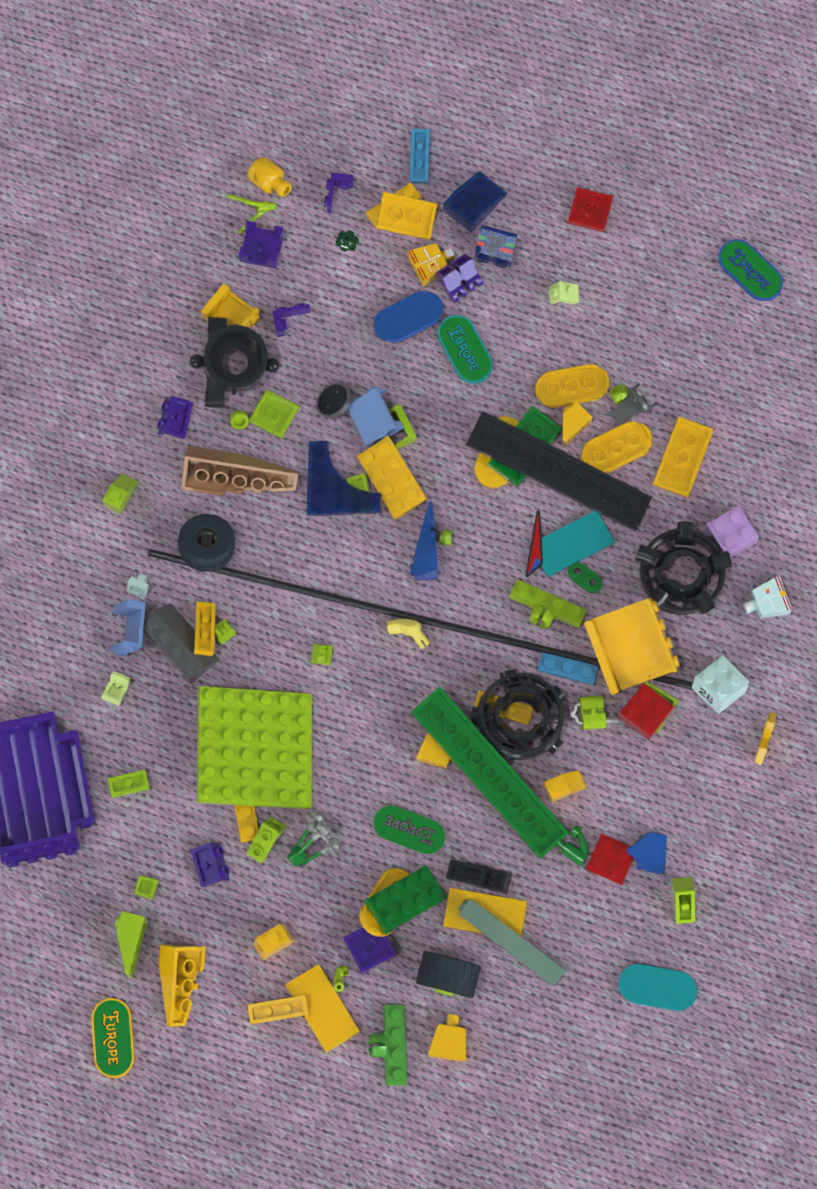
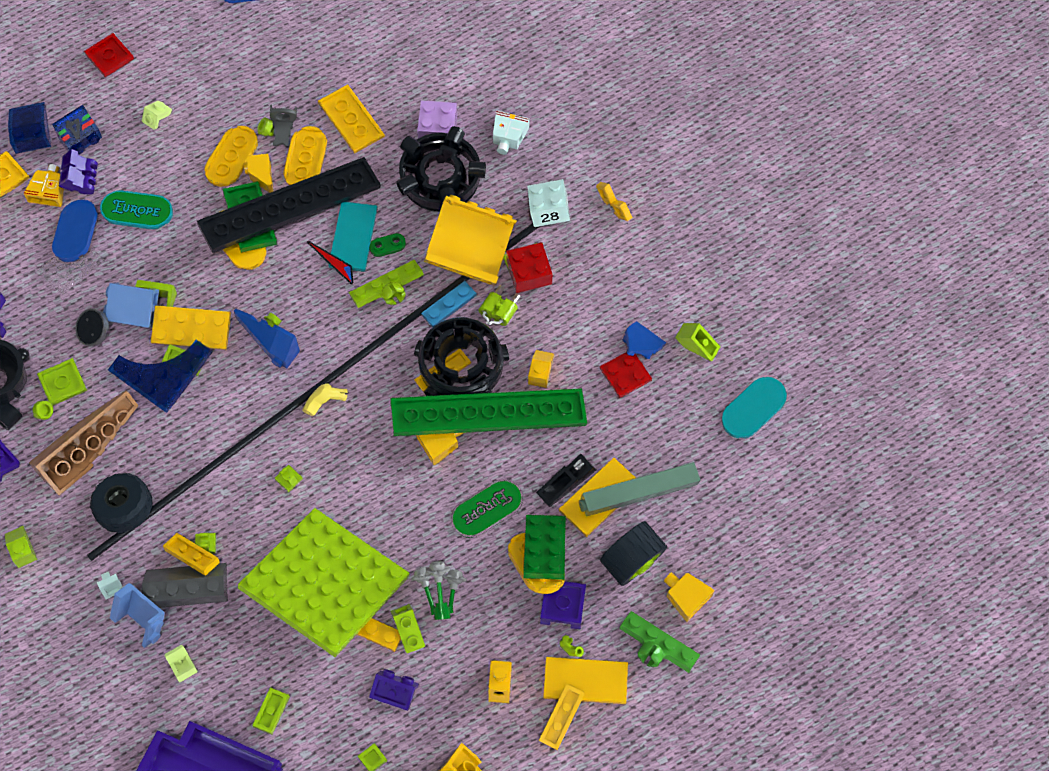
camera: 55 degrees left, 10 degrees down
(570, 851) = (600, 397): green plant -> none

